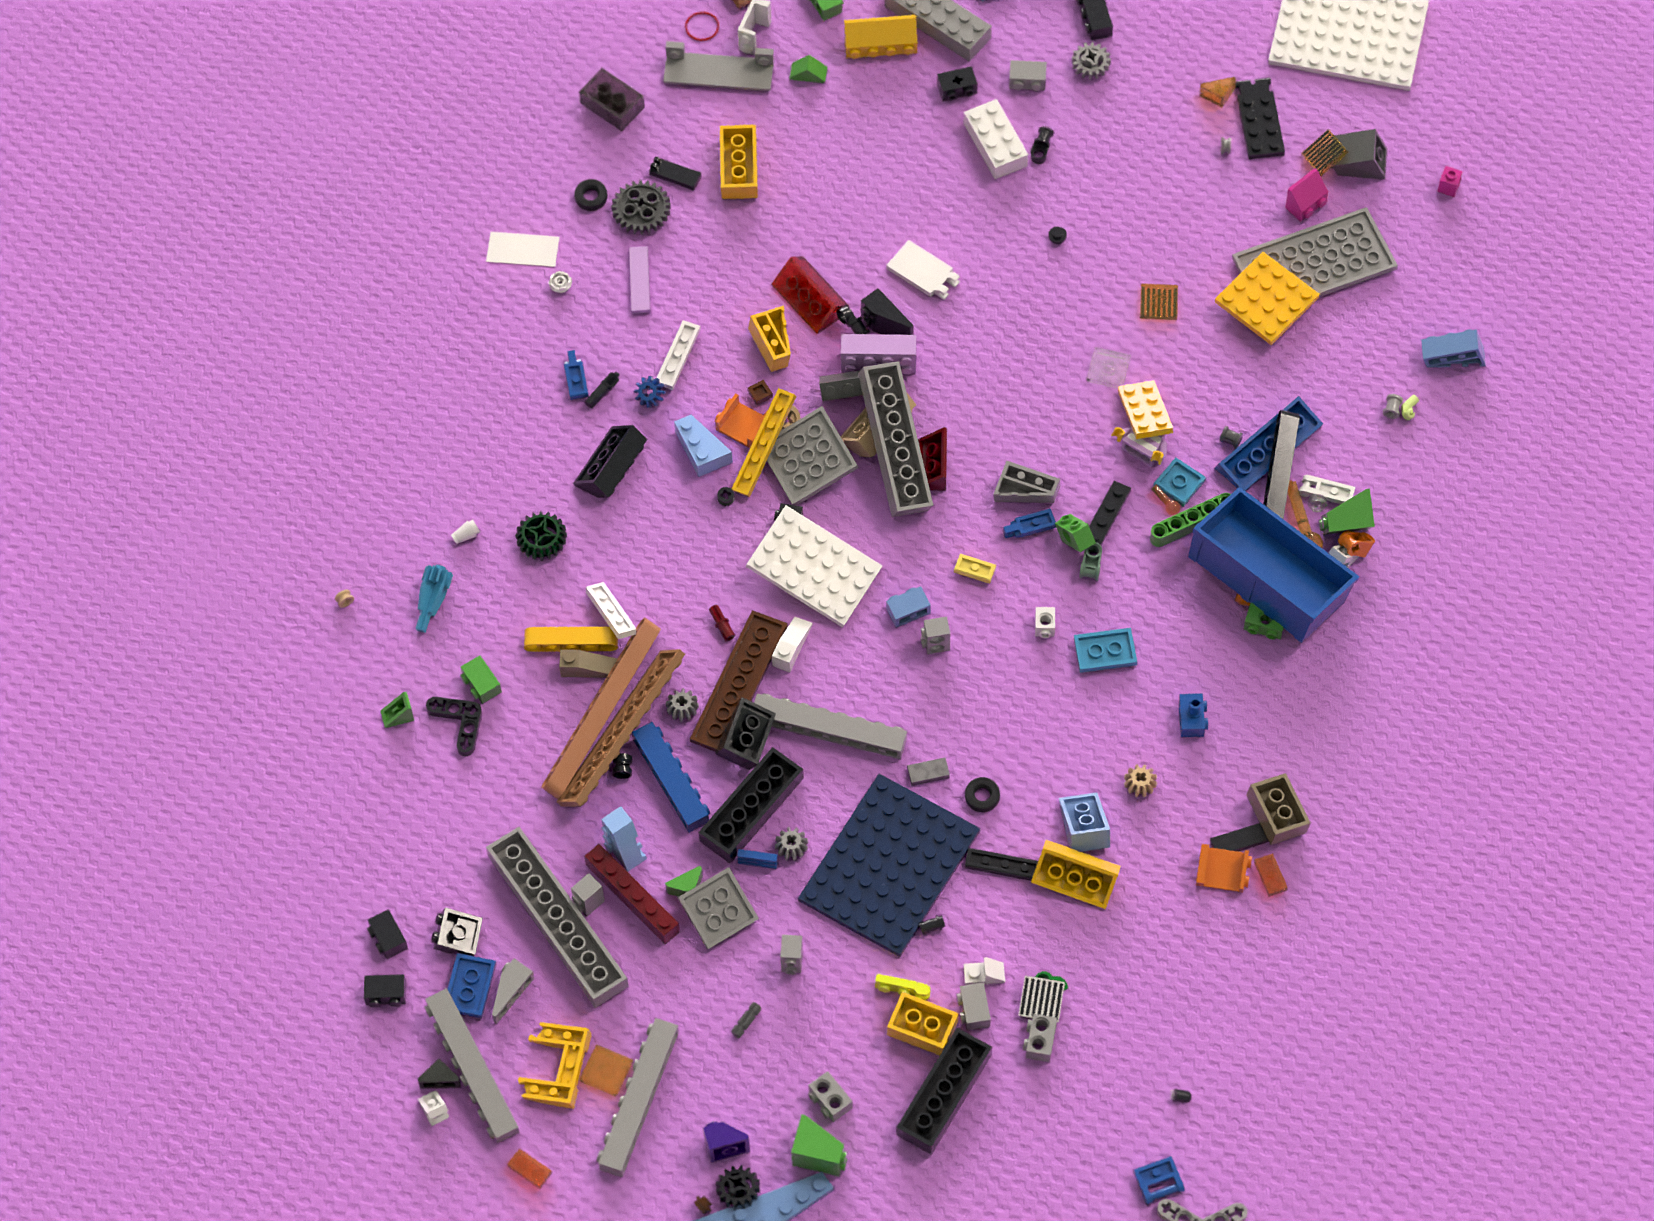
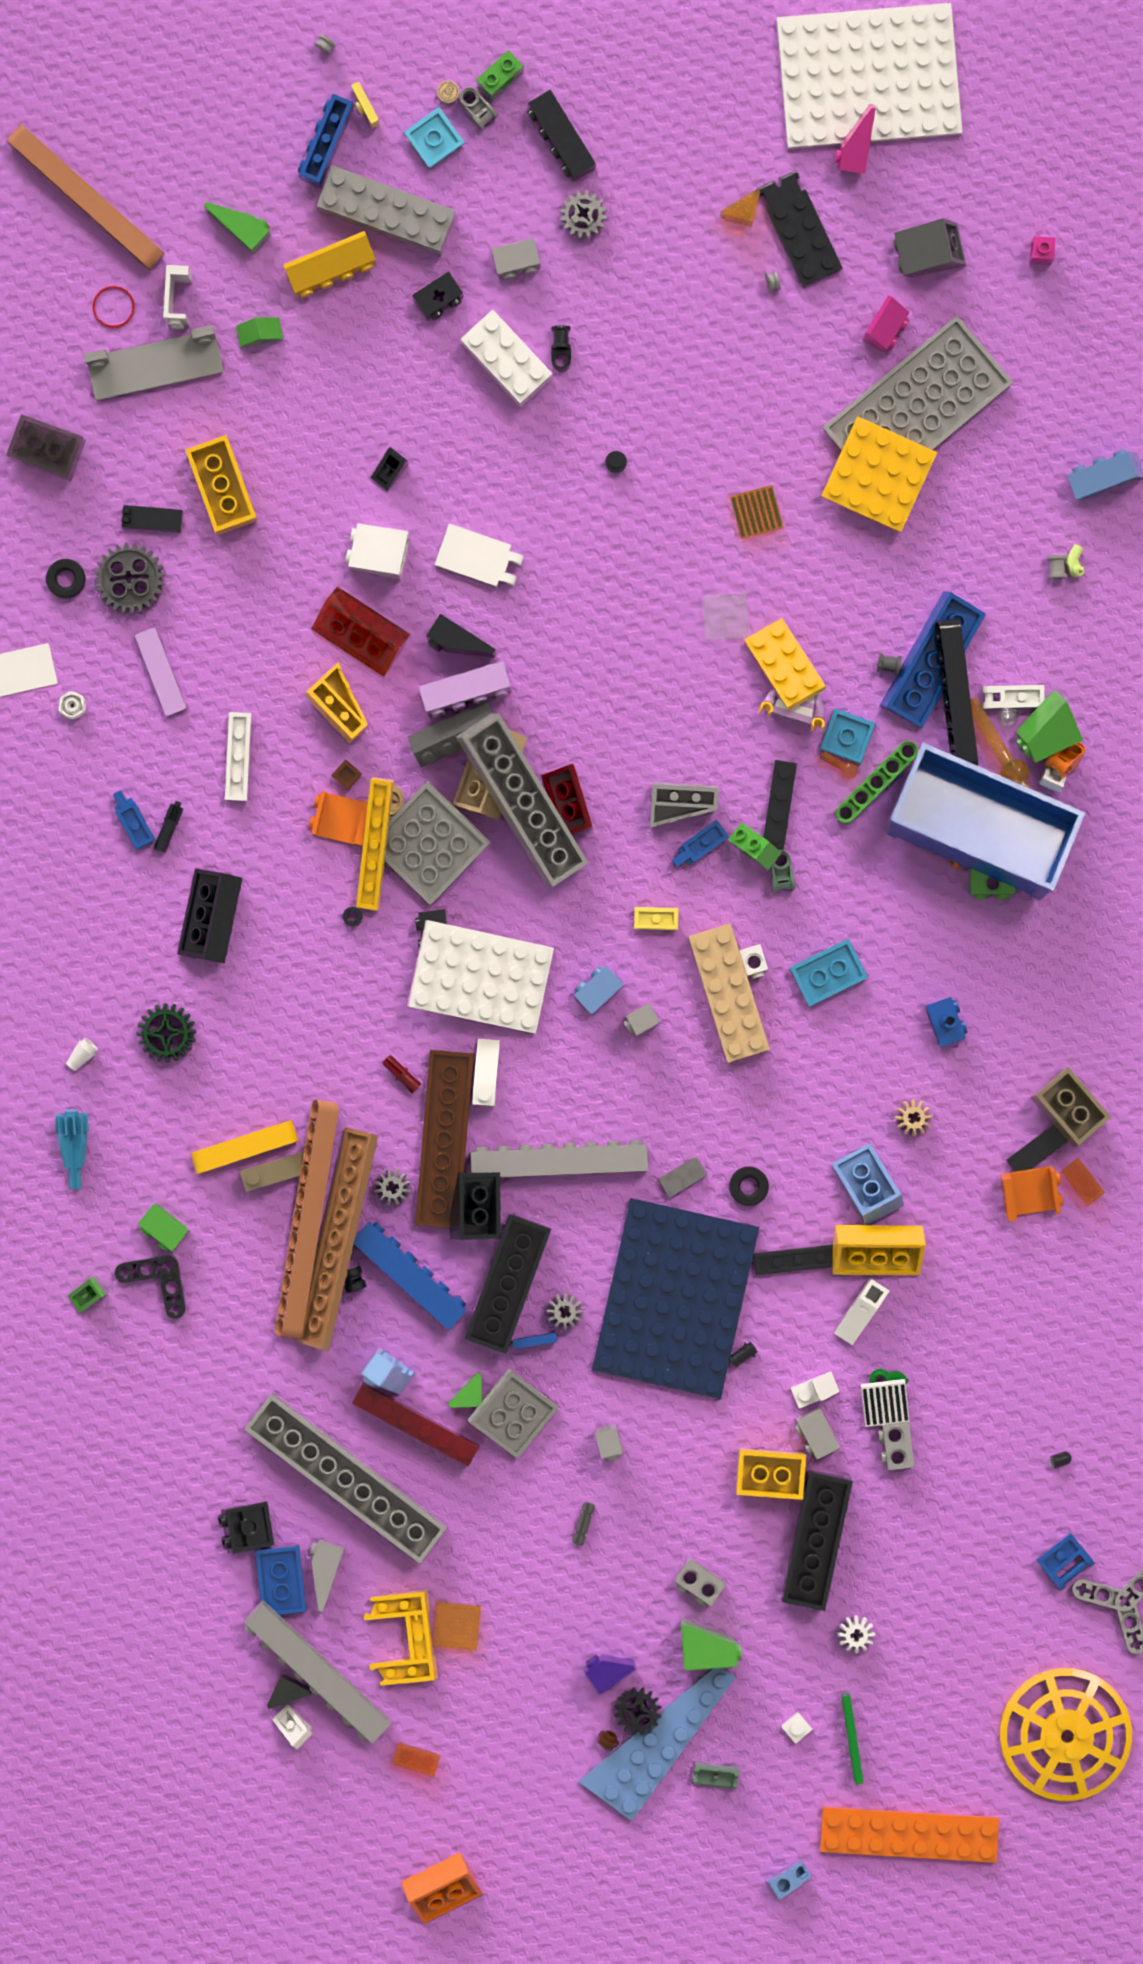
camera: 15 degrees left, 25 degrees up
(385, 990) = (194, 1615): black brick -> none
(387, 934) = (173, 1553): black brick -> none
(587, 895) = (370, 1445): light grey brick -> none
(610, 610) = (277, 1103): white plate -> none
(638, 1097) = (502, 1646): light grey brick -> none
(652, 398) = (220, 822): blue gear -> none
(701, 446) = (307, 868): light blue wedge -> none
(846, 241) = (378, 550): none -> white slope
(847, 317) = (423, 655): black connector -> none
(876, 188) = (389, 468): none -> black slope
(888, 983) = (736, 1435): neon yellow hinge -> none
(952, 1190) = (850, 1628): none -> white gear
(1016, 640) = (728, 993): none -> tan brick
(1046, 917) = (861, 1311): none -> white slope
(1321, 70) = (855, 147): none -> dark pink slope
(1324, 152) = (890, 259): tile -> none

